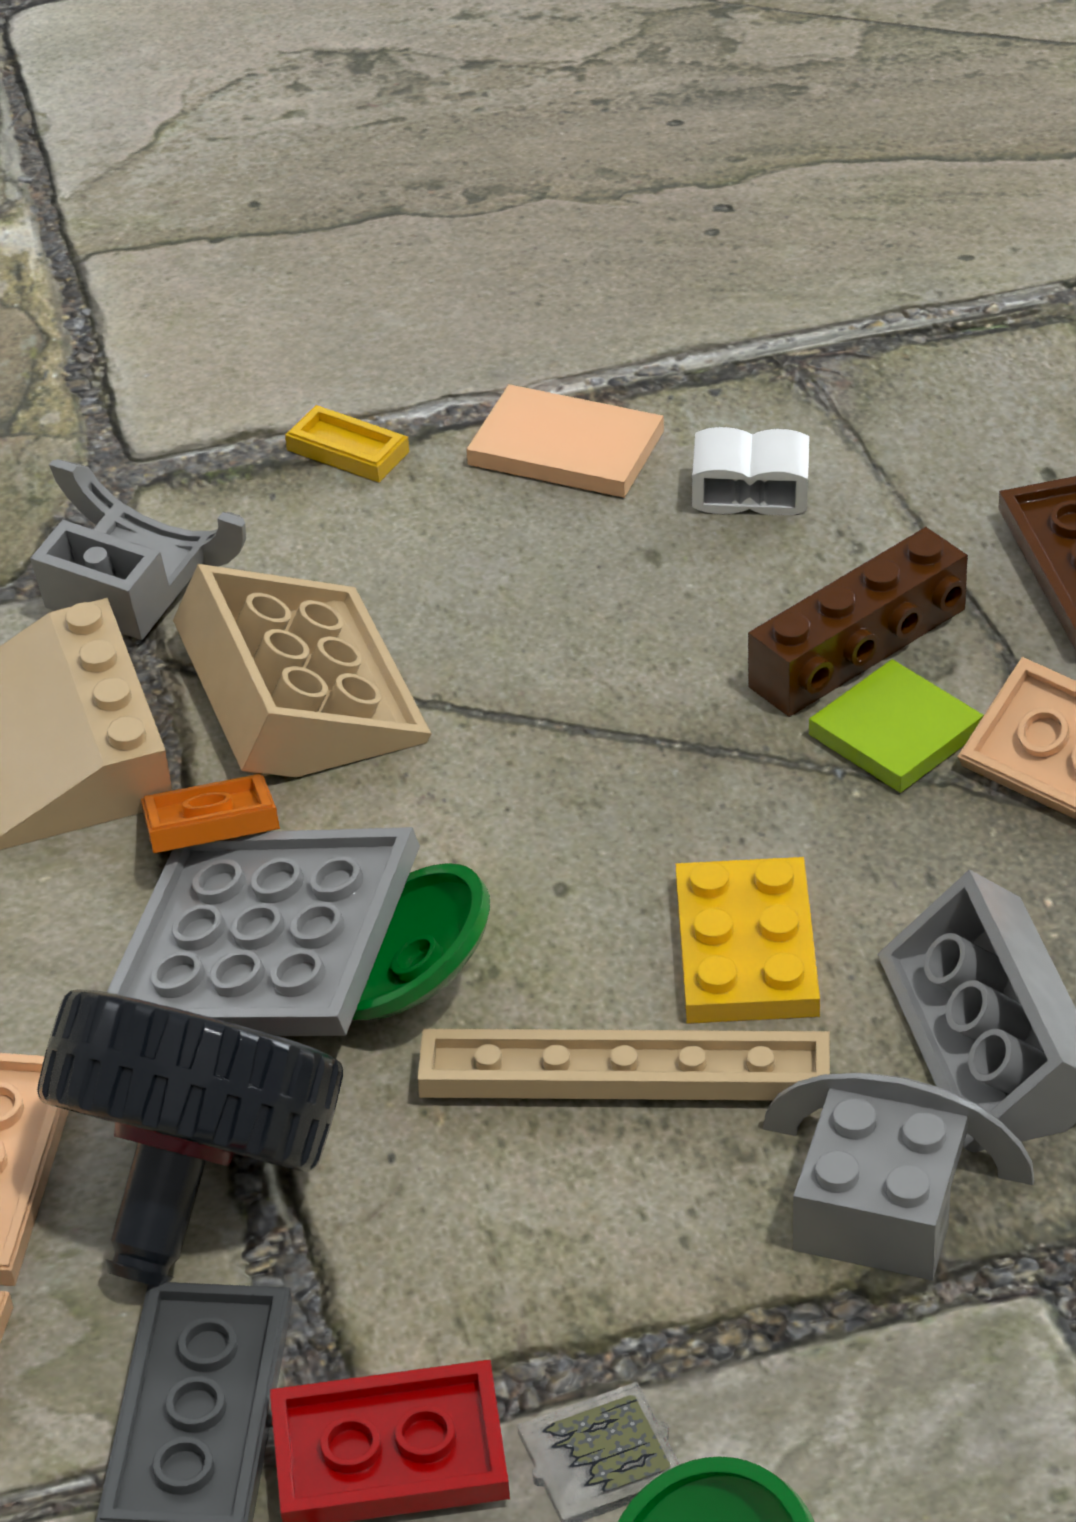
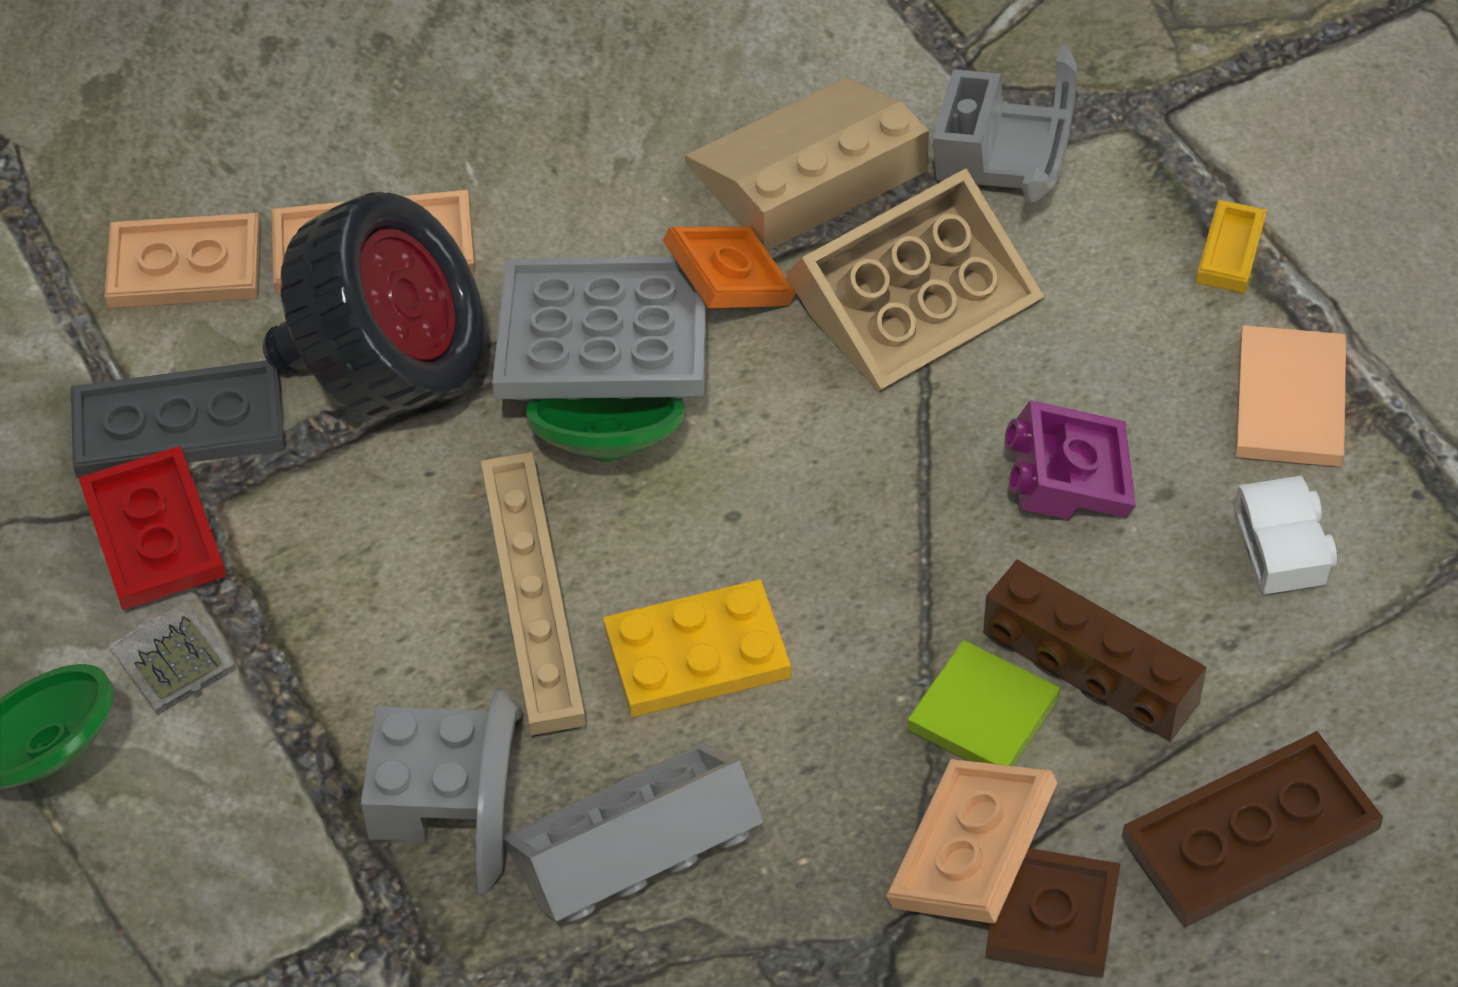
camera: 75 degrees right, 10 degrees up
(605, 598) = (1069, 462): none -> magenta plate

